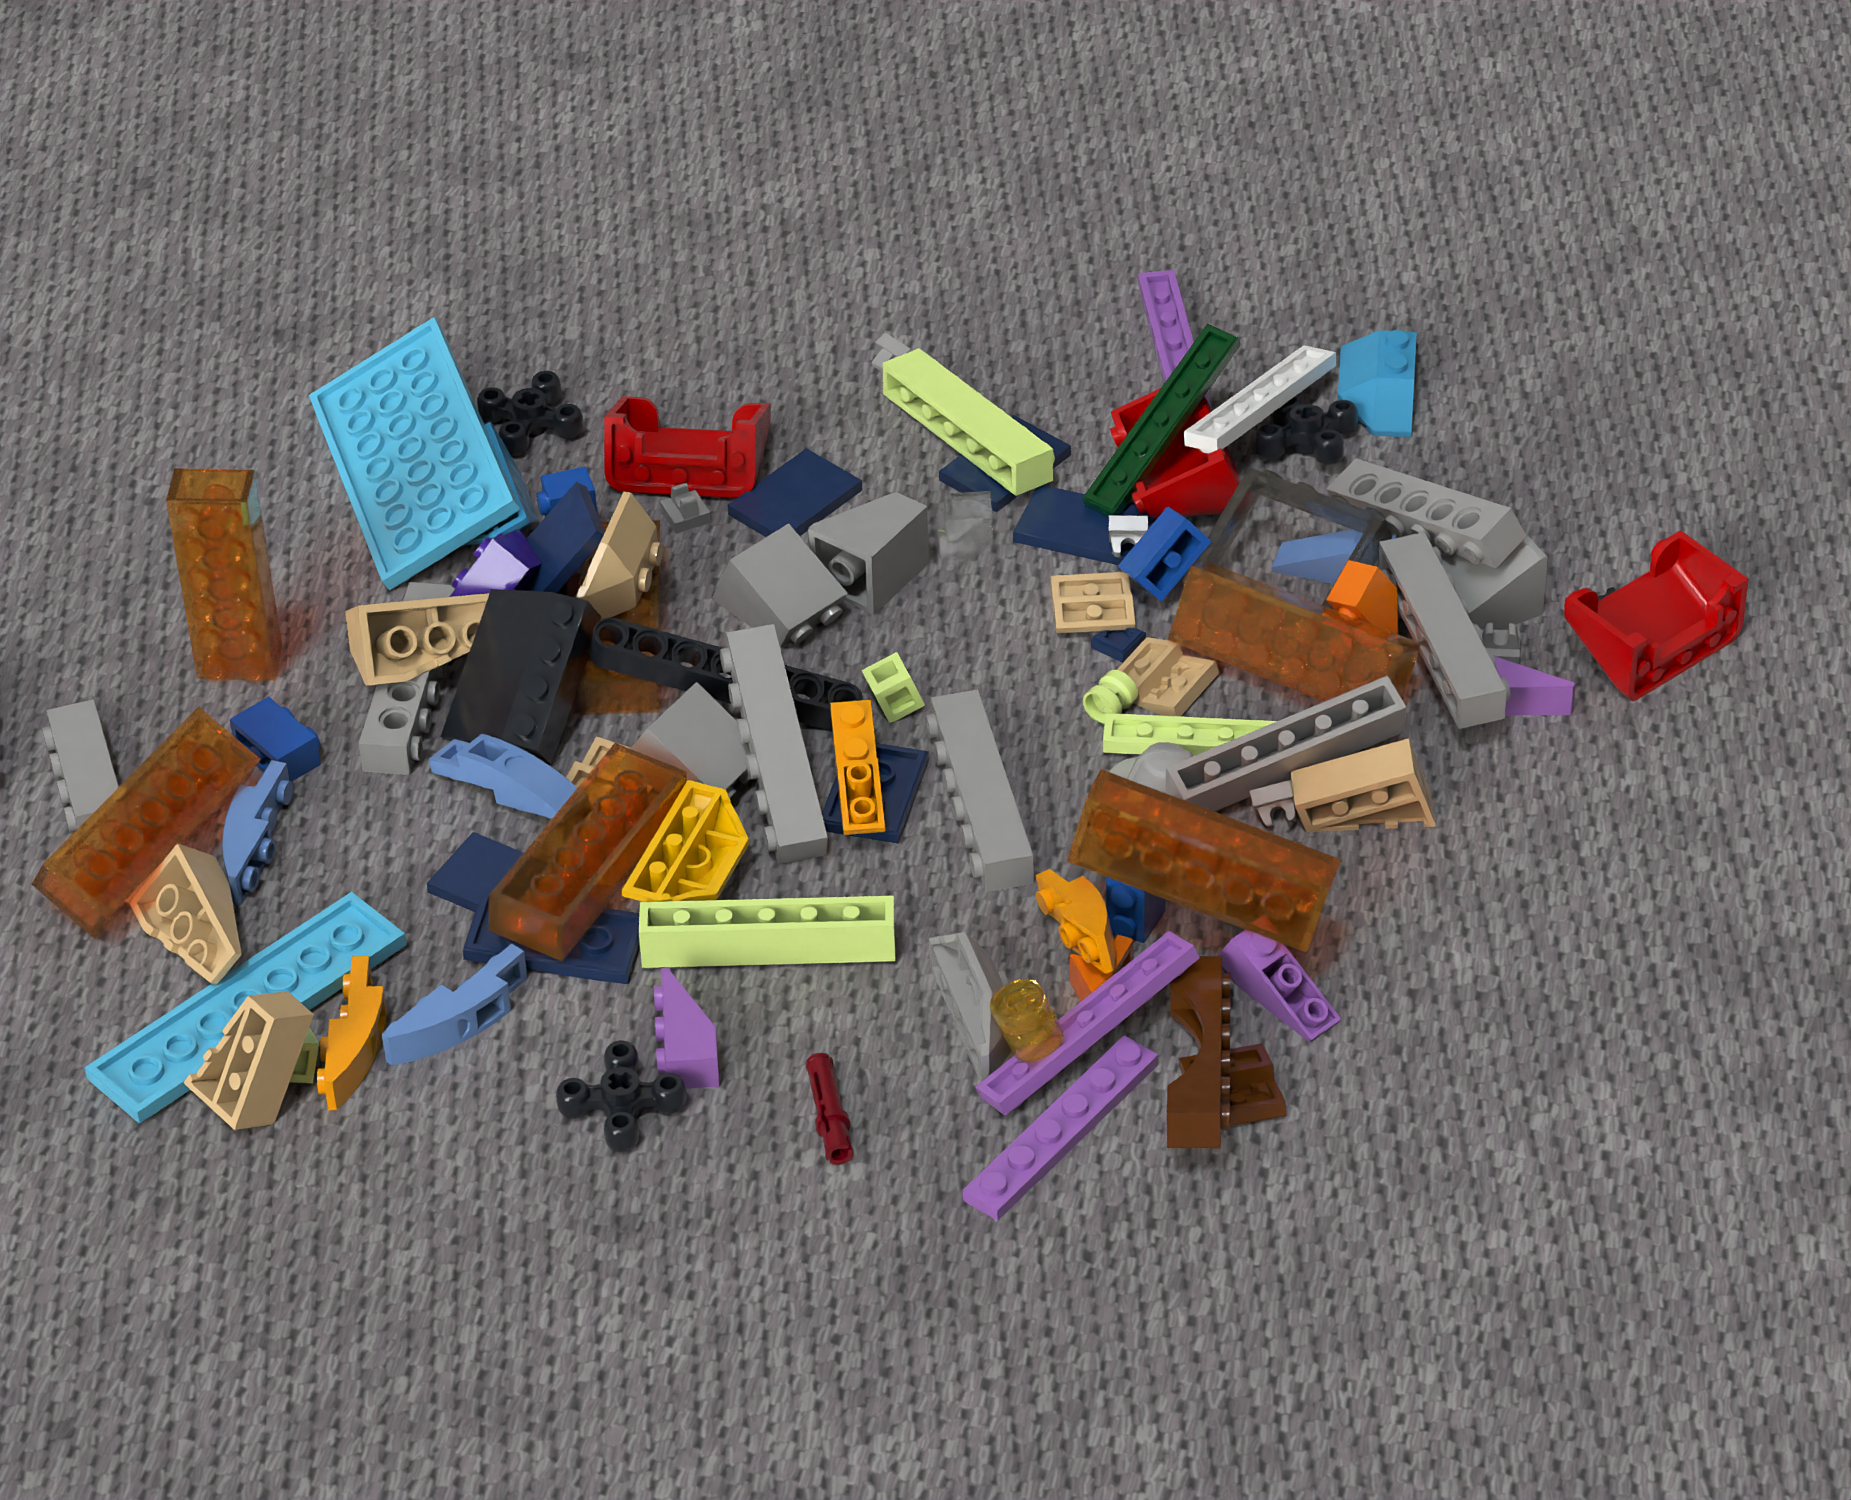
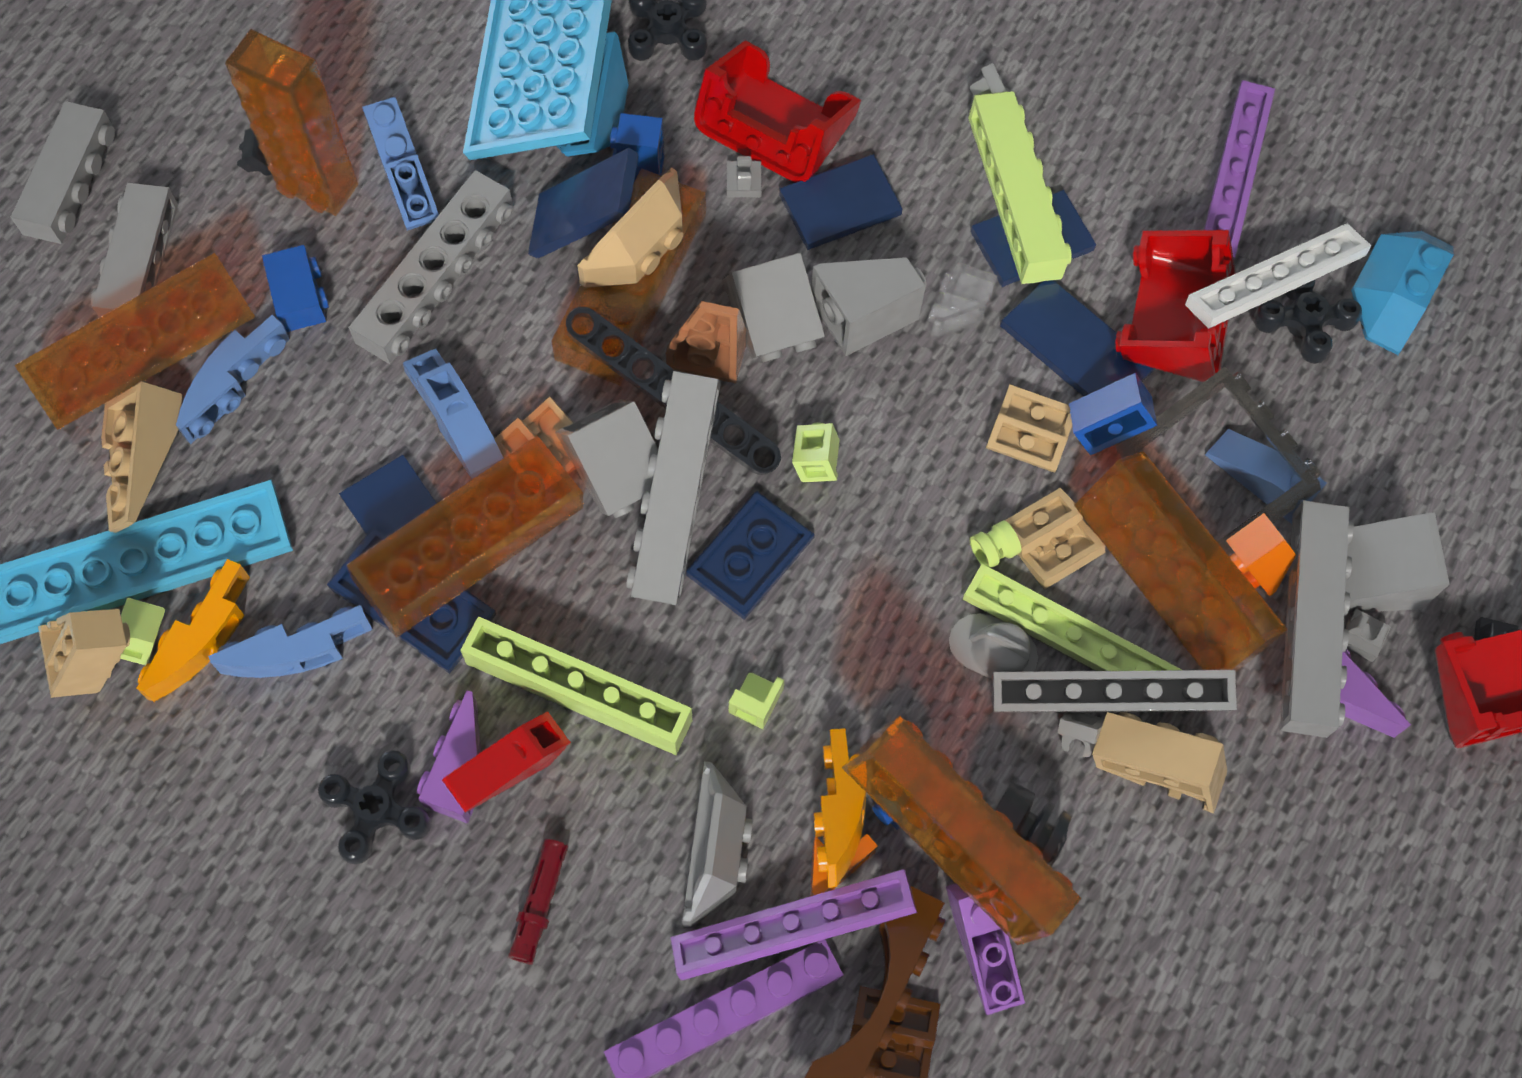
camera: 20 degrees right, 25 degrees up
(162, 652) = (252, 156): none -> black tile
(312, 603) = (401, 163): none -> medium blue slope
(411, 637) = (441, 238): tan wedge -> none
(501, 564) = (538, 200): slope -> none
(523, 670) = (509, 317): black slope -> none
(691, 849) = (551, 572): yellow wedge -> none
(740, 598) = (709, 343): none -> nougat wedge
(740, 997) = (507, 762): none -> red slope
(857, 767) = (736, 542): light orange slope -> none
(949, 893) = (756, 699): none -> yellowish green panel
(980, 791) = (835, 602): light grey brick -> none
(1026, 1020) = (733, 910): clear yellow wheel -> none
(1118, 644) = (1034, 481): dark blue tile -> none
(1126, 530) = (1095, 370): tile -> none
(1161, 421) = (1179, 268): dark green tile -> none
(1450, 518) = (1348, 453): light grey brick -> none

